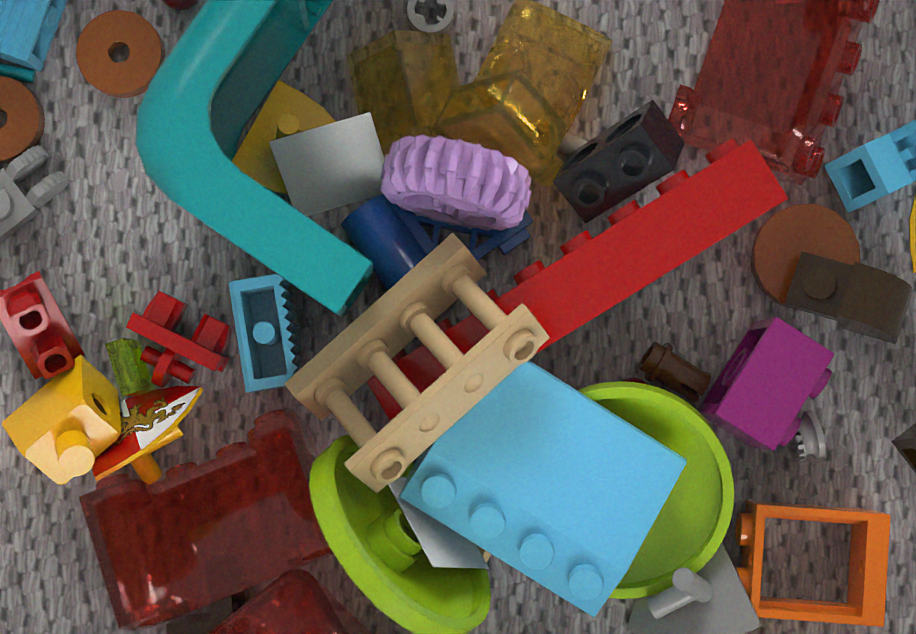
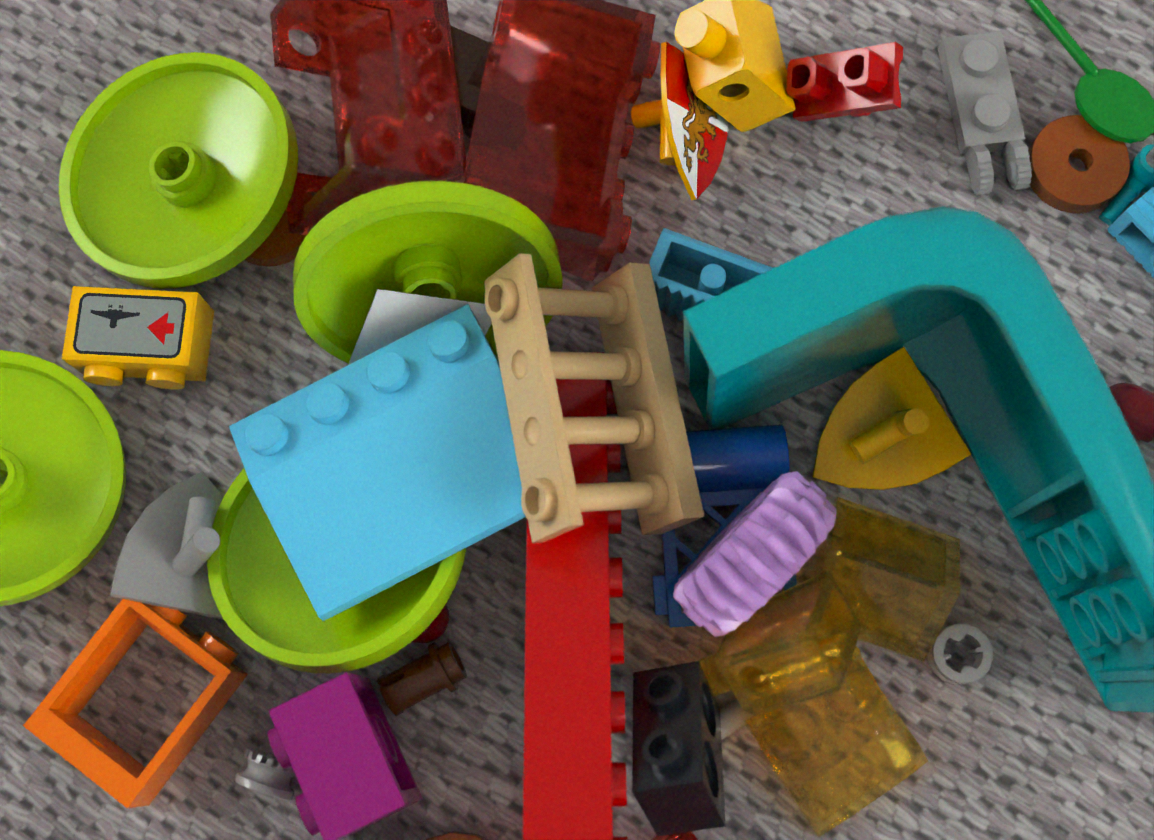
camera: 125 degrees right, 10 degrees down
(100, 41) = (1107, 298): dark orange piece -> none
(130, 372) = (756, 147): clear neon green tile -> none
(159, 325) = (749, 196): red hips -> none
(331, 164) = (852, 445): white sticker -> none

